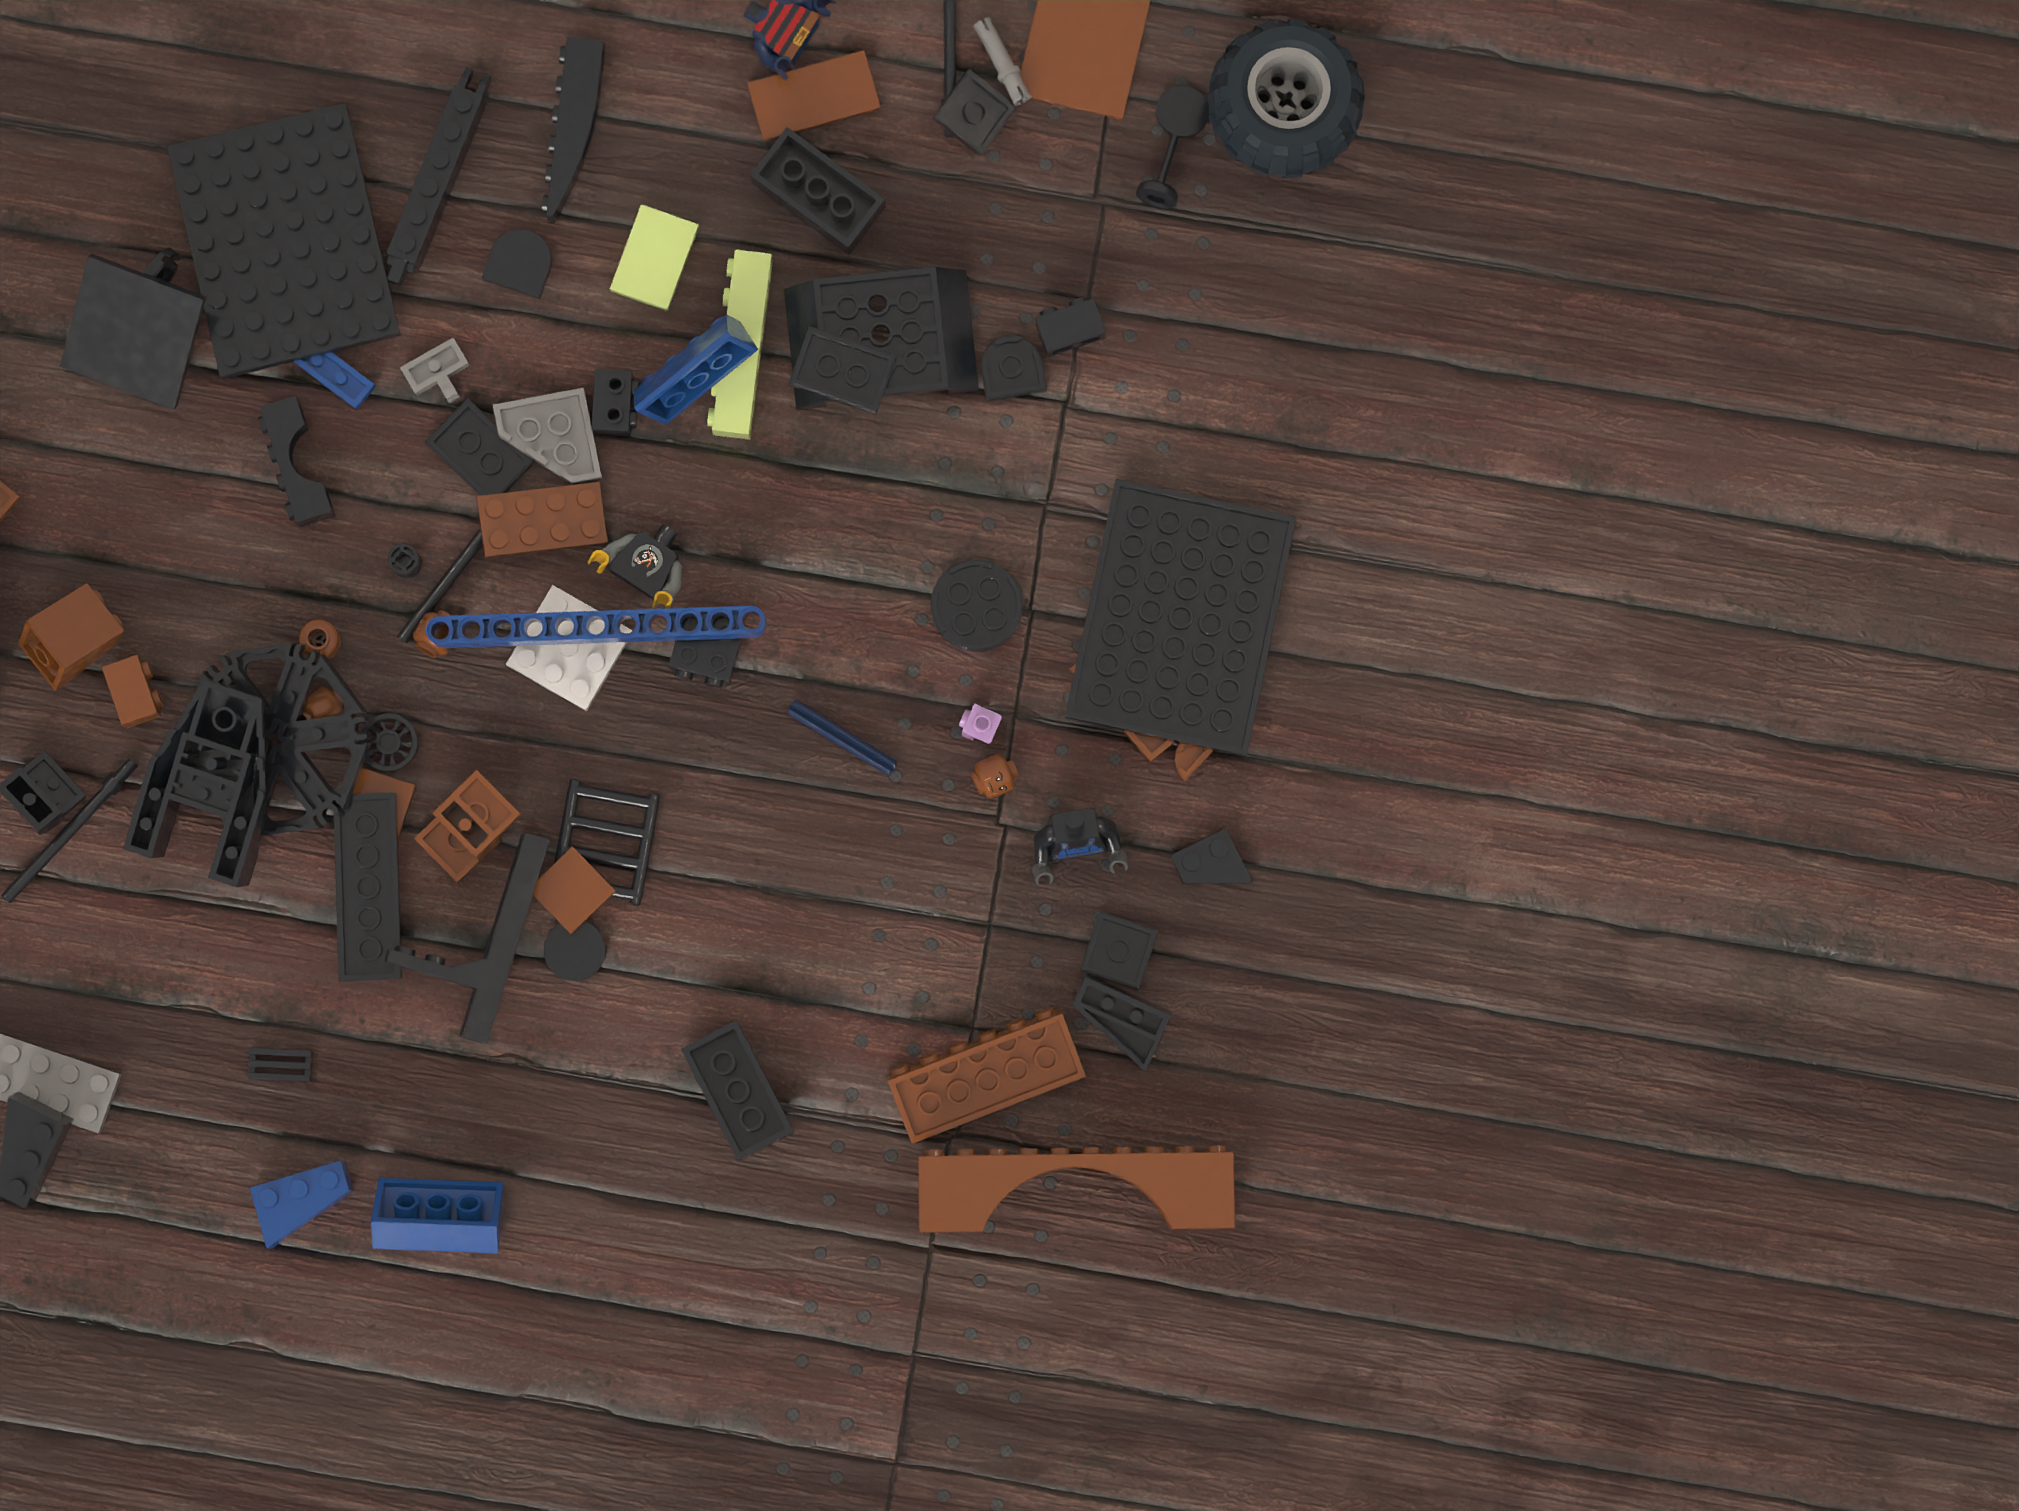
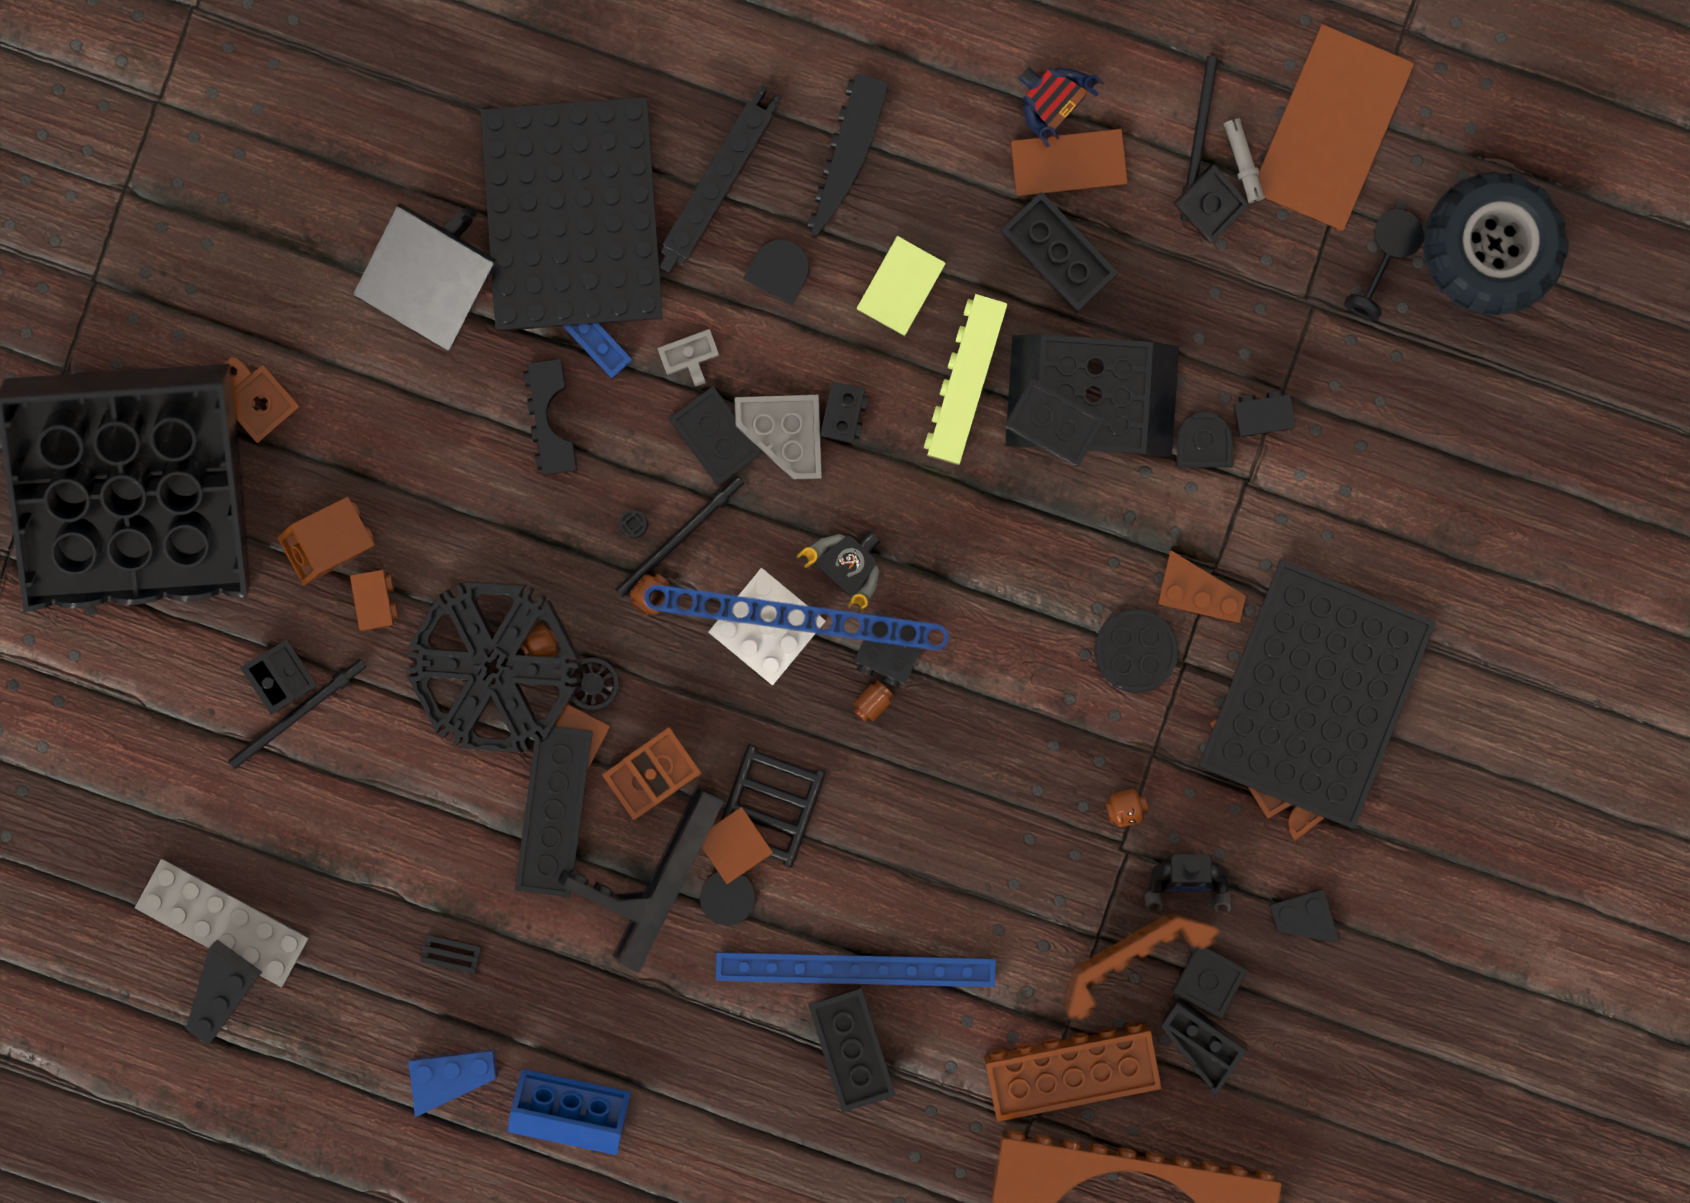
camera: 10 degrees right, 5 degrees up
(214, 765) = (437, 682): black wedge -> none
(316, 629) = (537, 579): dark orange head -> none
(541, 520) = (761, 508): dark orange plate -> none
(694, 370) = (920, 398): blue slope -> none
(698, 709) = (872, 702): none -> dark orange brick
(727, 1004) = (855, 969): none -> blue plate
(842, 737) = (996, 749): dark blue axle -> none
(980, 724) = (1121, 760): lavender bracket -> none
(1033, 530) = (1198, 592): none -> dark orange wing
(1088, 892) = (1077, 998): none -> dark orange slope

